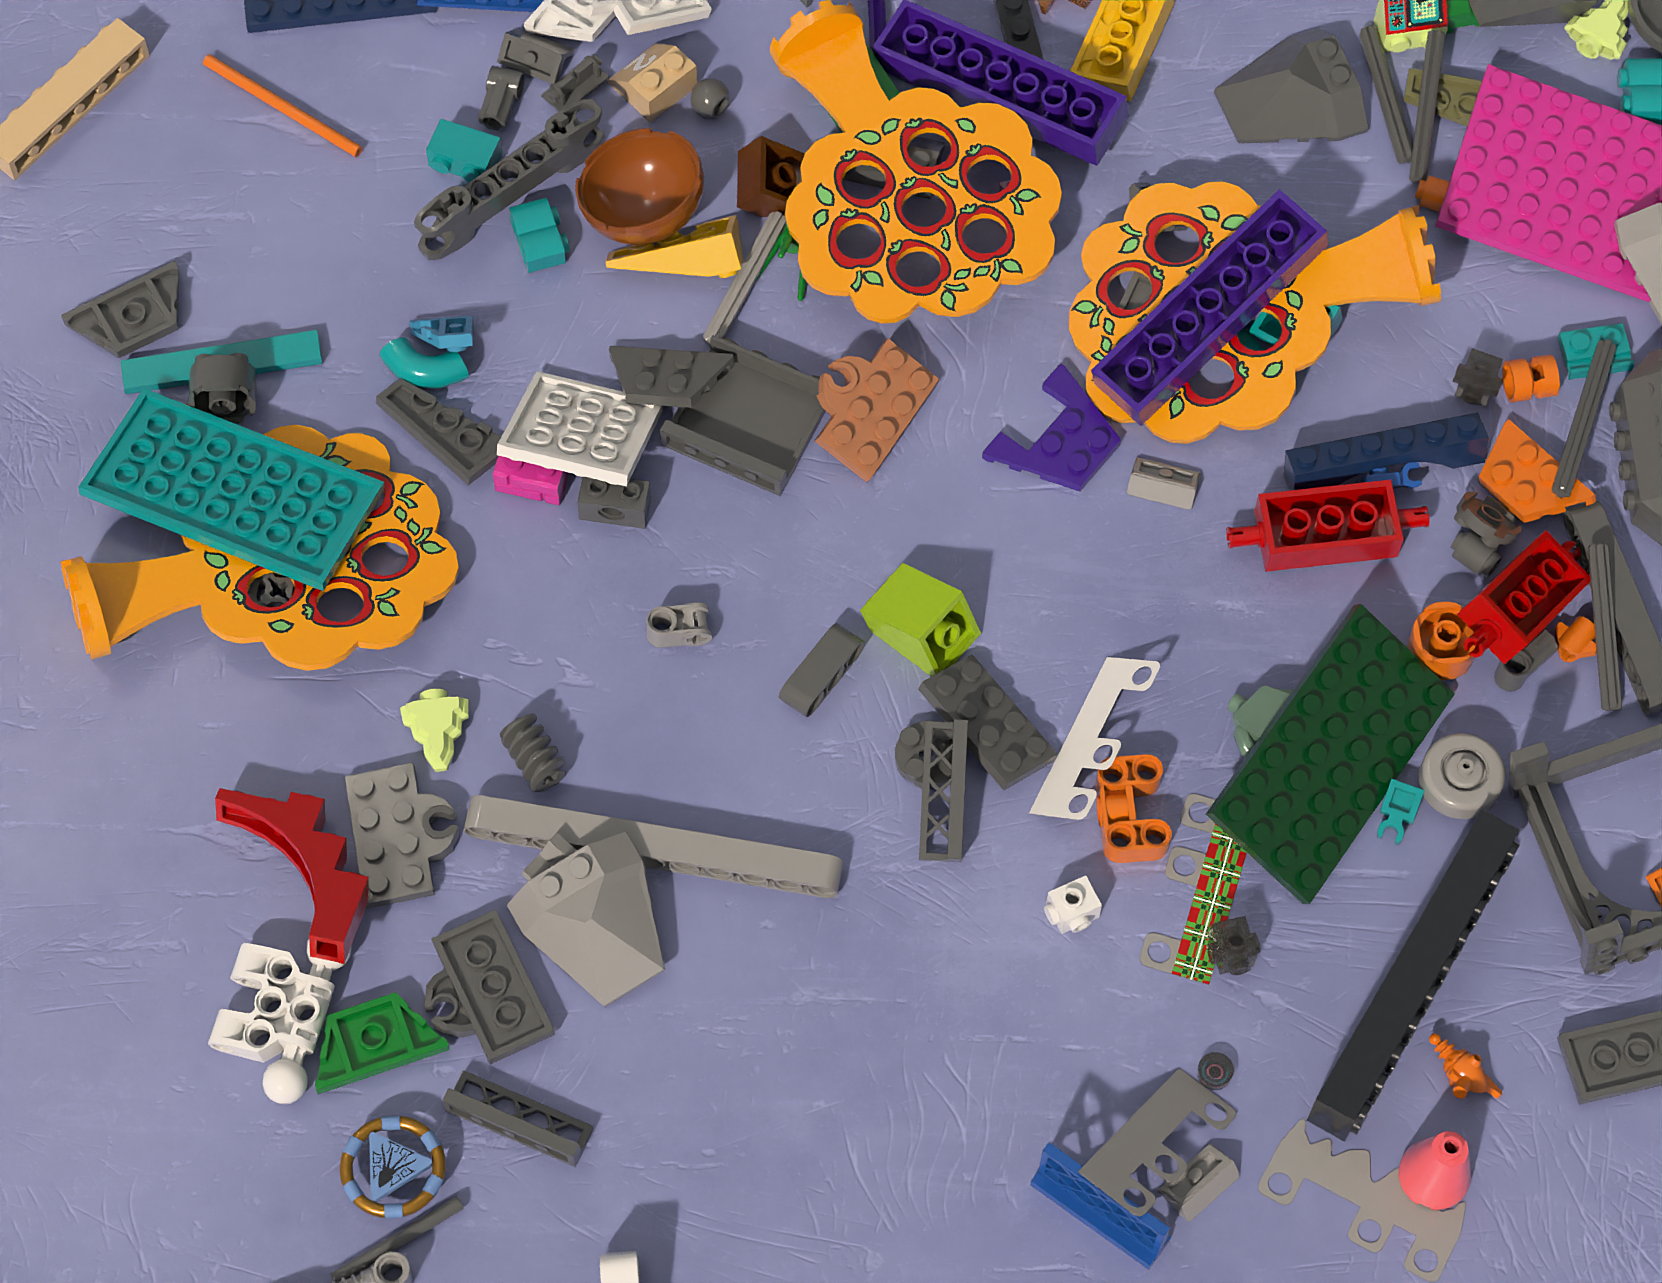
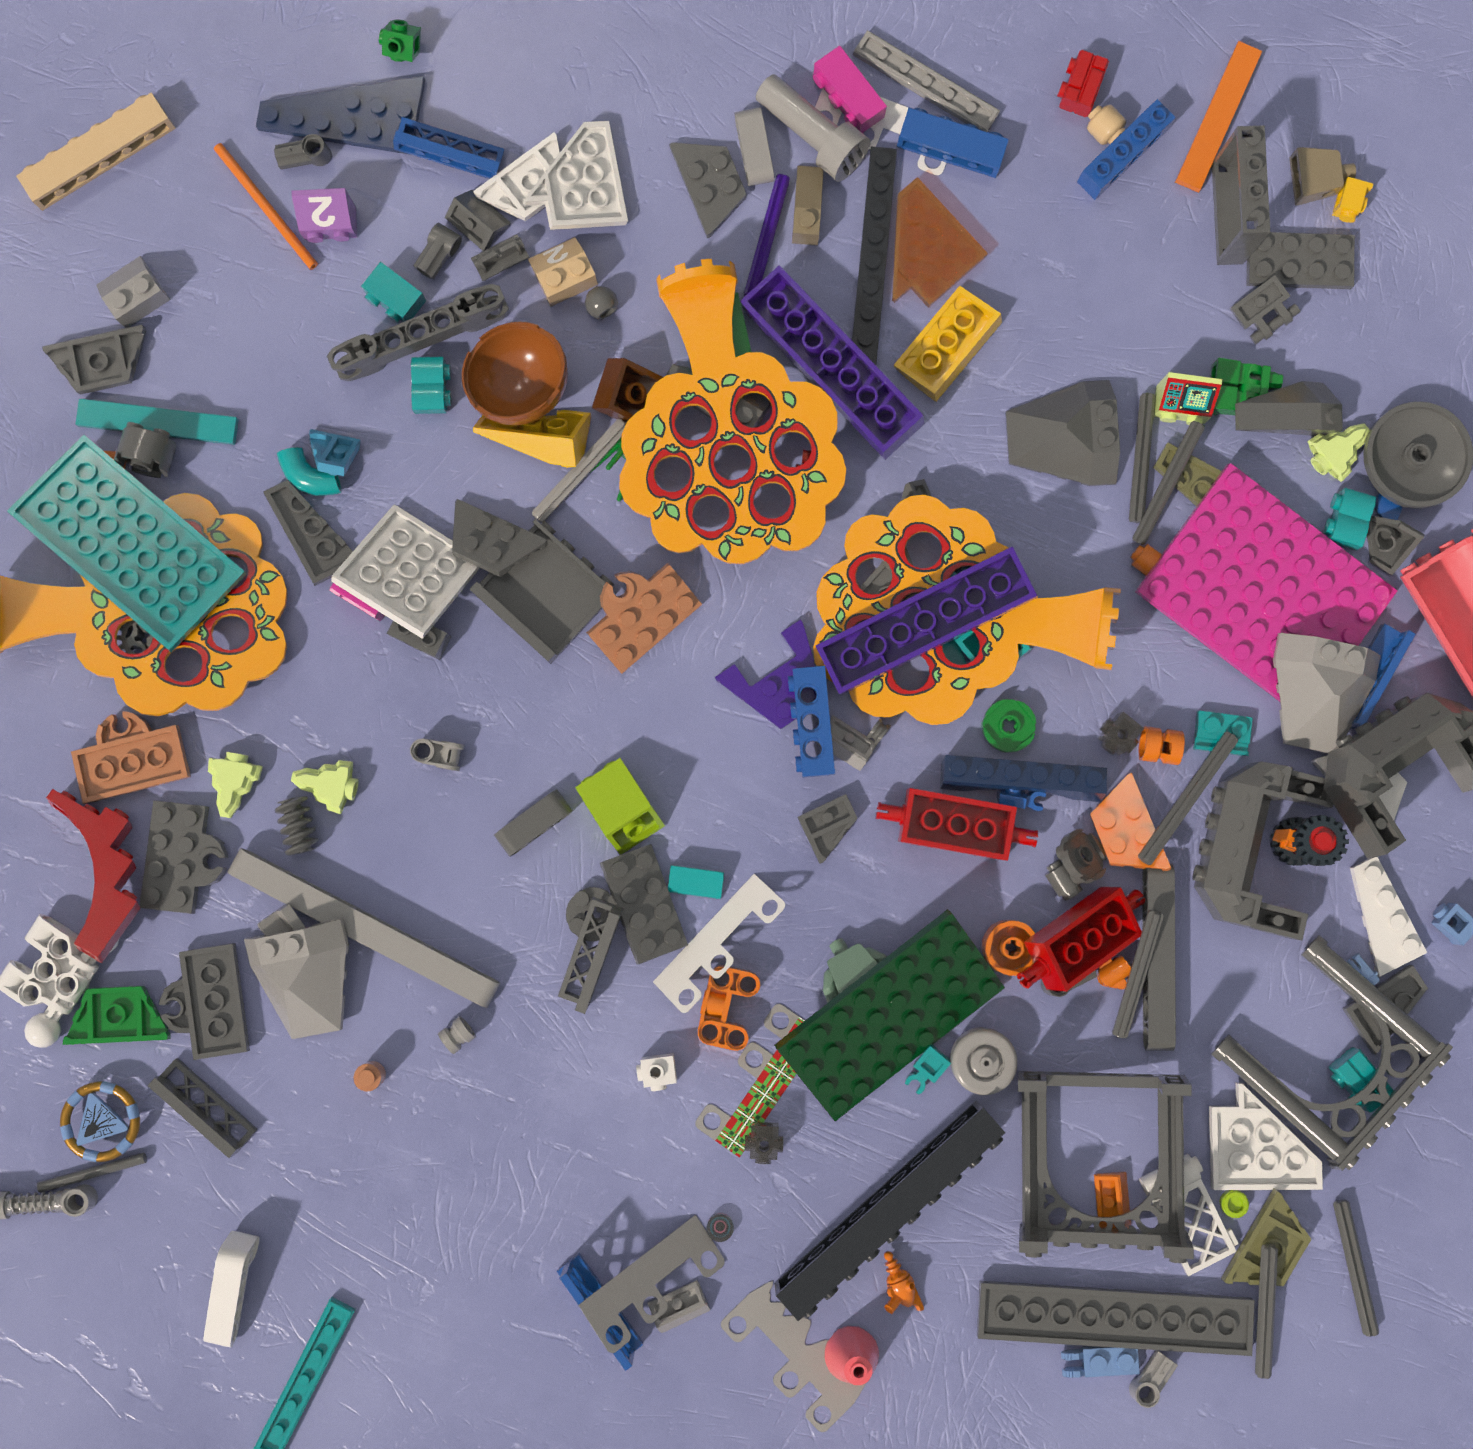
camera: 15 degrees right, 20 degrees up
(153, 232) = (132, 292): none -> light grey slope
(301, 738) = (129, 759): none -> nougat plate
(311, 37) = (300, 152): none -> dark grey piece
(359, 87) = (325, 214): none -> medium lavender slope
(557, 697) = (329, 784): none -> yellowish green rock
(718, 1012) = (369, 1076): none -> nougat brick
(809, 937) = (458, 1033): none -> light grey wheel
(1041, 680) = (695, 882): none -> teal slope
(1103, 412) = (814, 679): none -> blue brick
(1175, 574) = (827, 825): none -> dark grey wing
(1196, 455) = (878, 731): none -> dark grey bush
(1343, 392) = (1010, 710): none -> green plate

